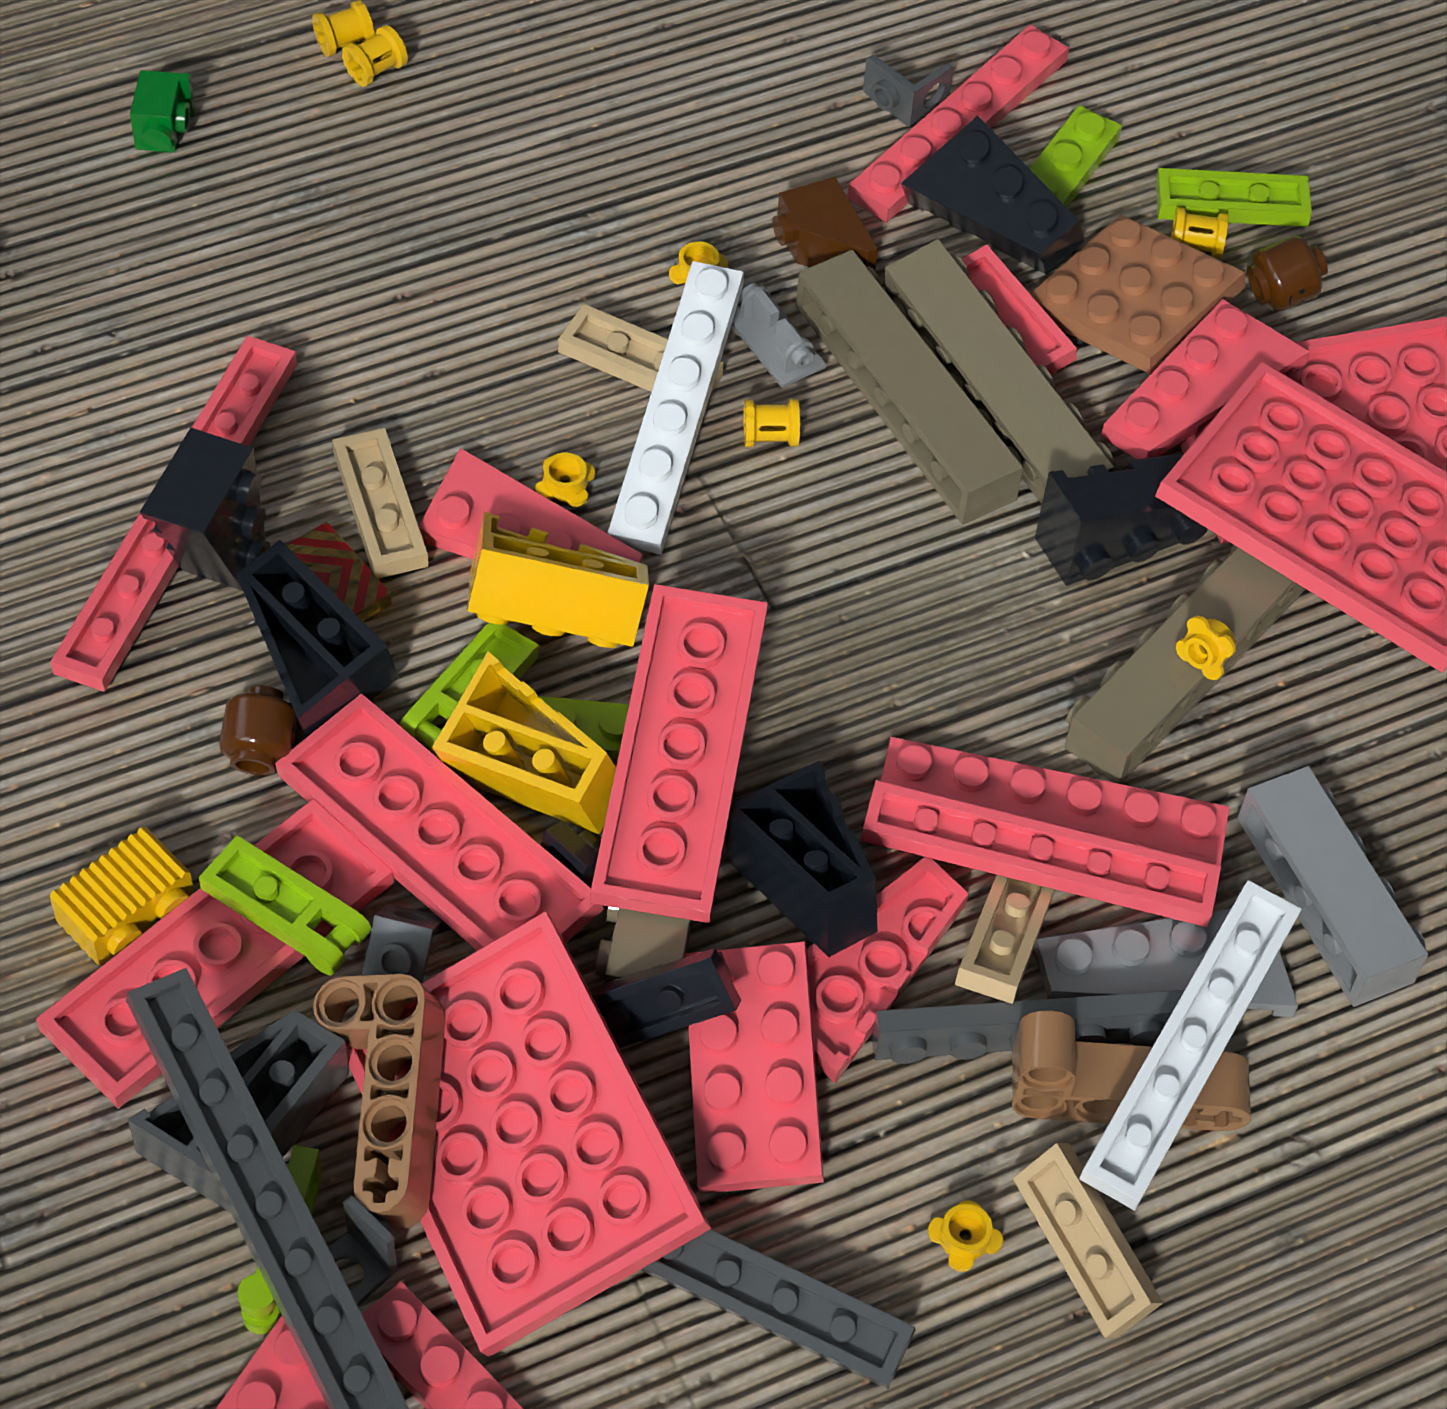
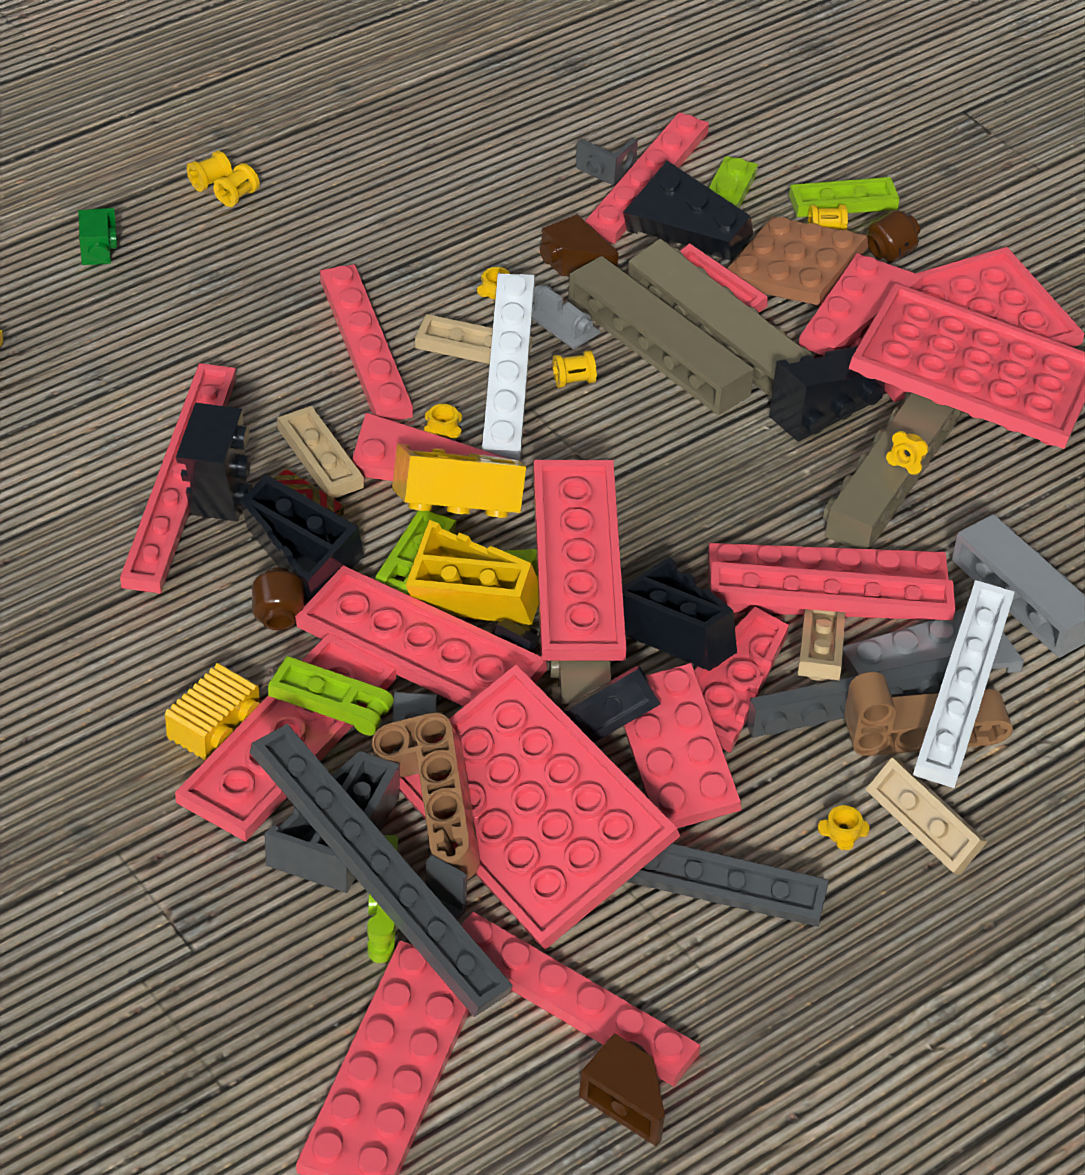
camera: 10 degrees left, 10 degrees down
(491, 336) = (366, 343): none -> coral plate

